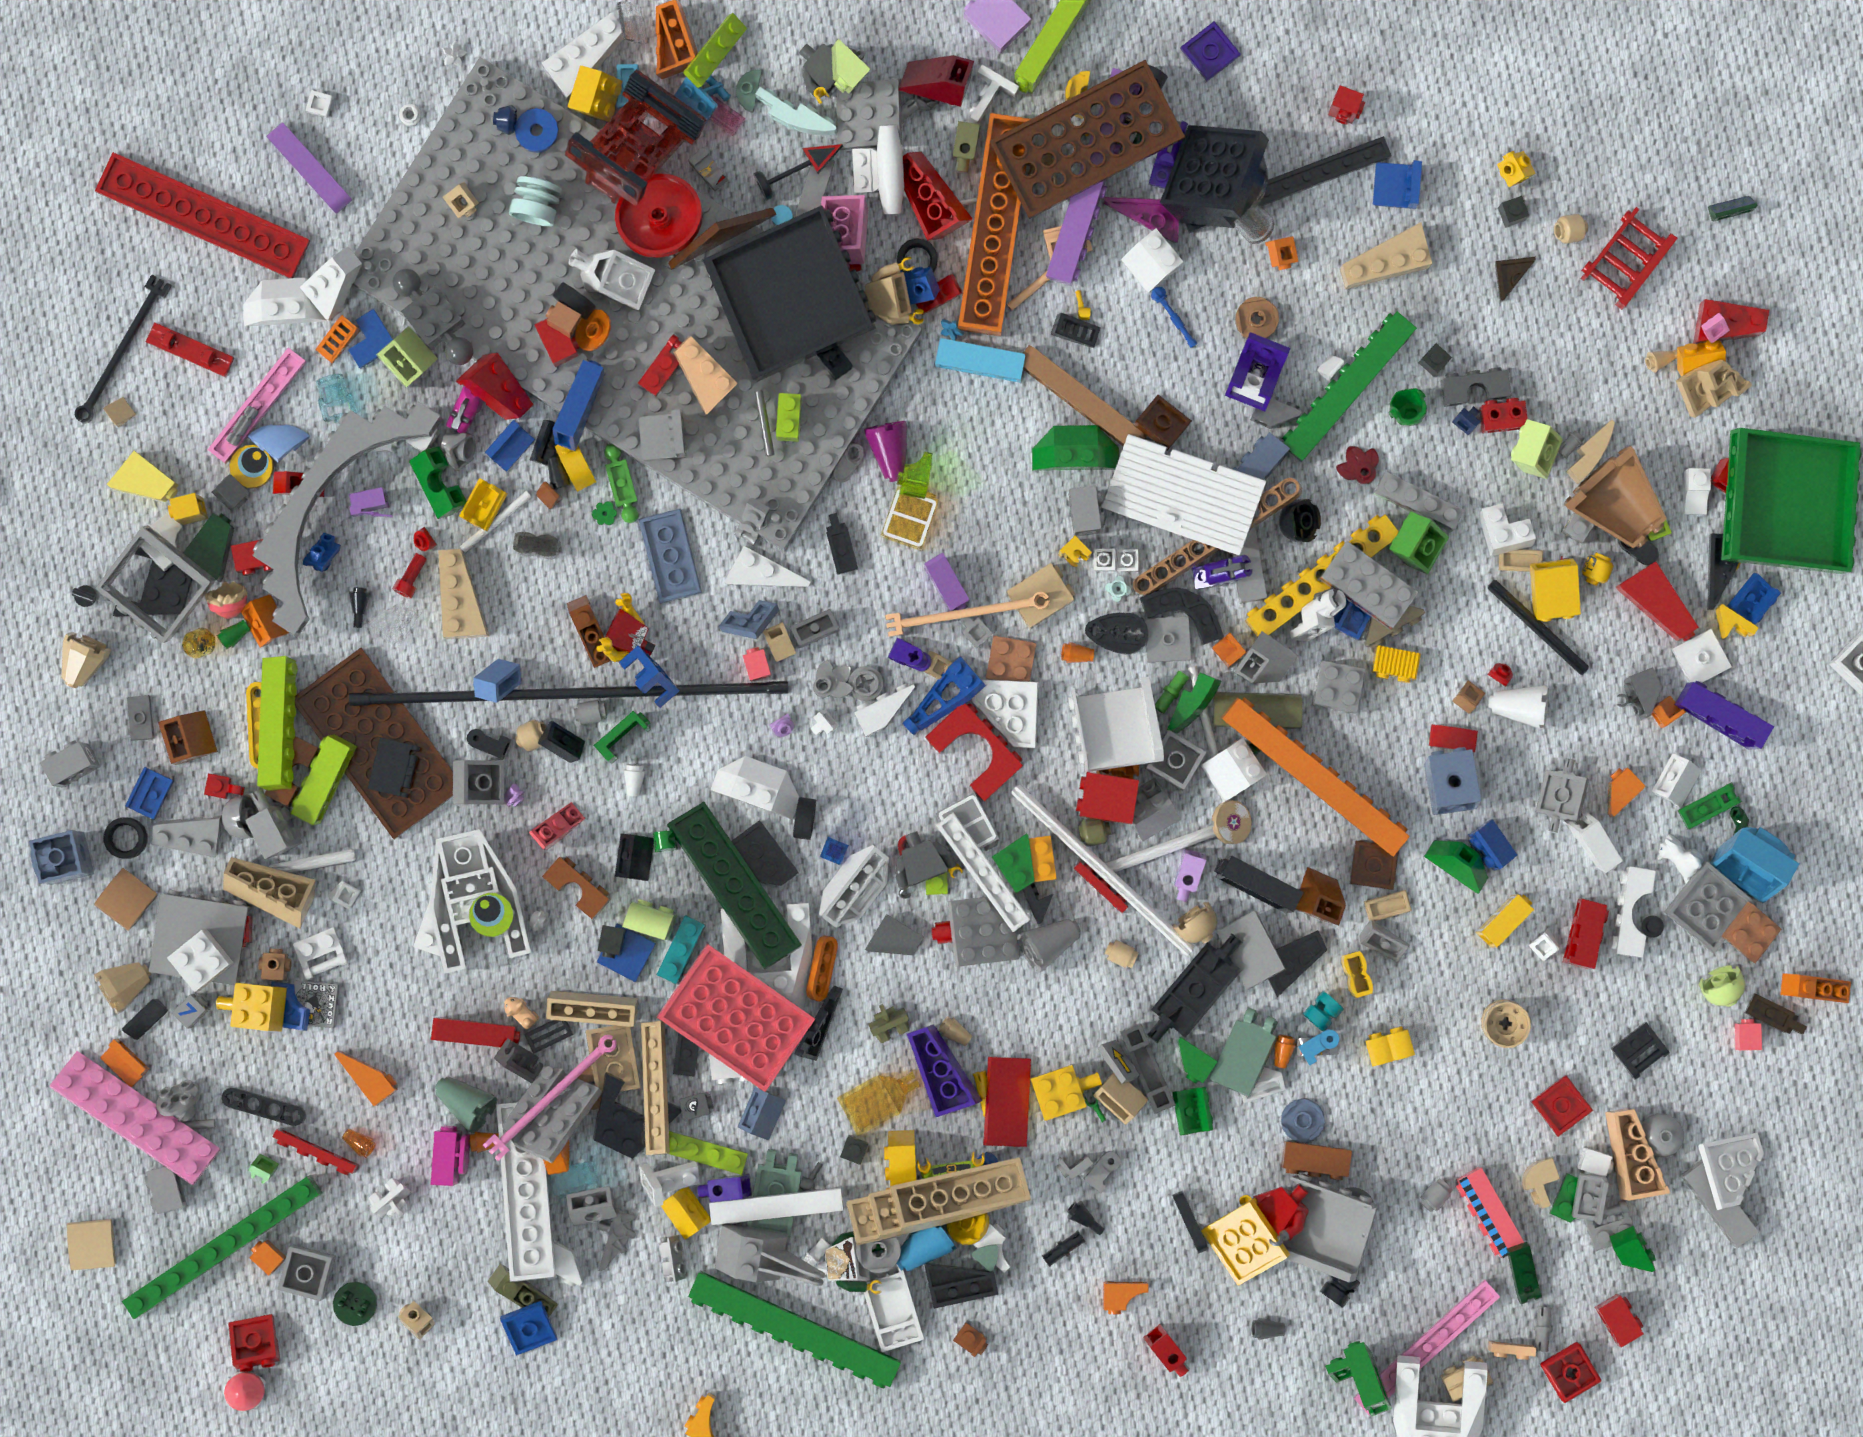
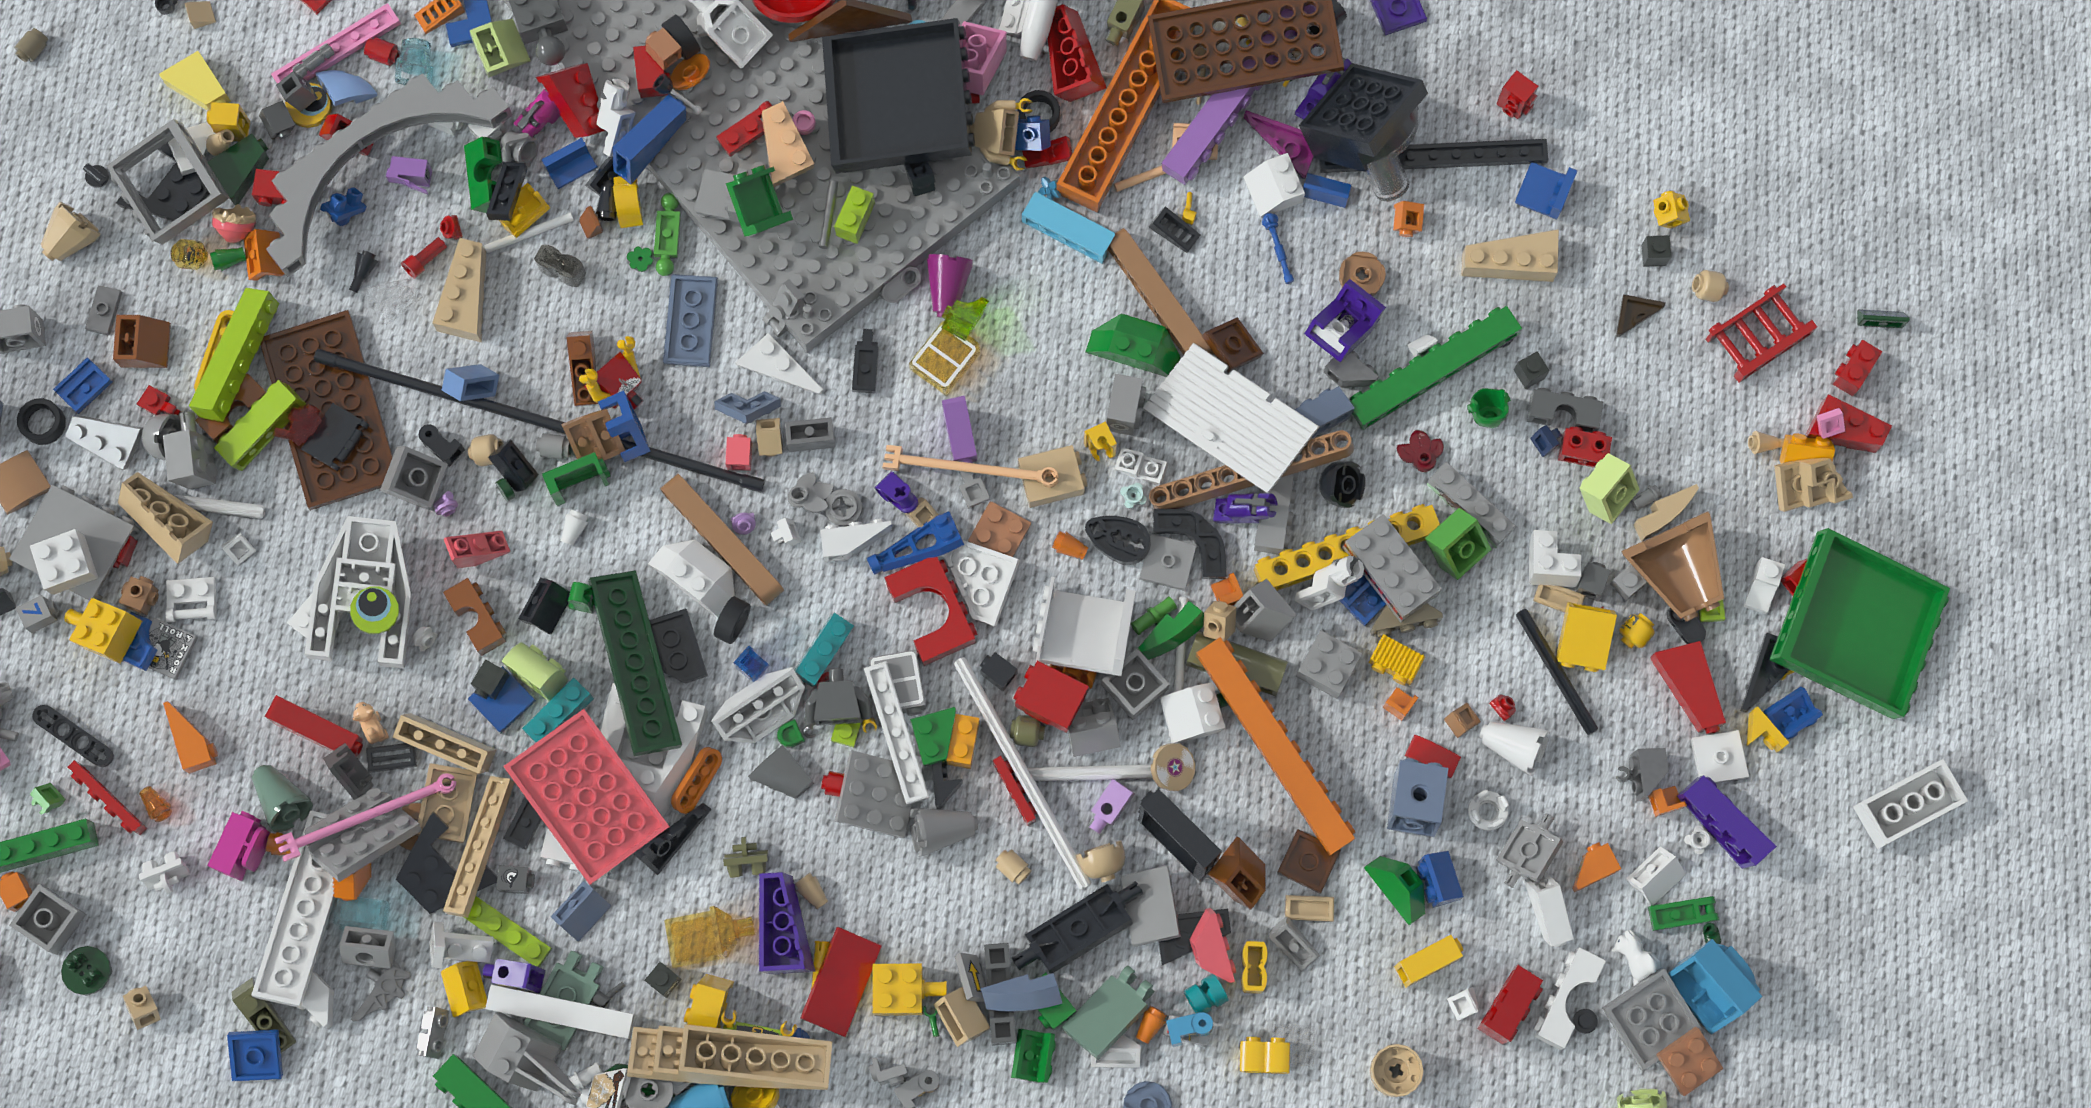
camera: 15 degrees right, 10 degrees down
(187, 530) = (219, 142): none -> tan cone
(239, 460) = (296, 91): none -> dark grey brick
(300, 395) = (381, 51): none -> red brick
(363, 764) = (304, 423): none -> clear red piece
(465, 493) = (506, 191): none -> black plate
(539, 392) = (613, 113): none -> white plate
(561, 764) = (505, 489): none -> dark green tile
(576, 354) = (664, 85): none -> black hinge
(622, 695) = (590, 435): none -> medium nougat slope
(699, 436) = (756, 201): none -> green panel
(712, 343) = (804, 122): none -> bright pink tile
(769, 747) = (722, 539): none -> medium nougat beam
(888, 901) = (790, 734): none -> green tile
(892, 818) = (823, 649): none -> teal brick
(1051, 786) = (998, 671): none -> black brick
(1168, 1063) = (1022, 994): none -> sand blue slope
(1200, 248) = (1326, 190): none -> blue panel
(1231, 680) = (1219, 620): none -> tan brick
(1315, 969) = (1211, 948): none -> coral slope
(1410, 700) = (1399, 703): none -> orange panel
(1526, 764) = (1498, 801): none -> white piece
(1546, 535) = (1593, 580): none -> dark grey brick
(1710, 736) = (1691, 840): none -> white plate
(1723, 263) = (1857, 368): none -> red brick

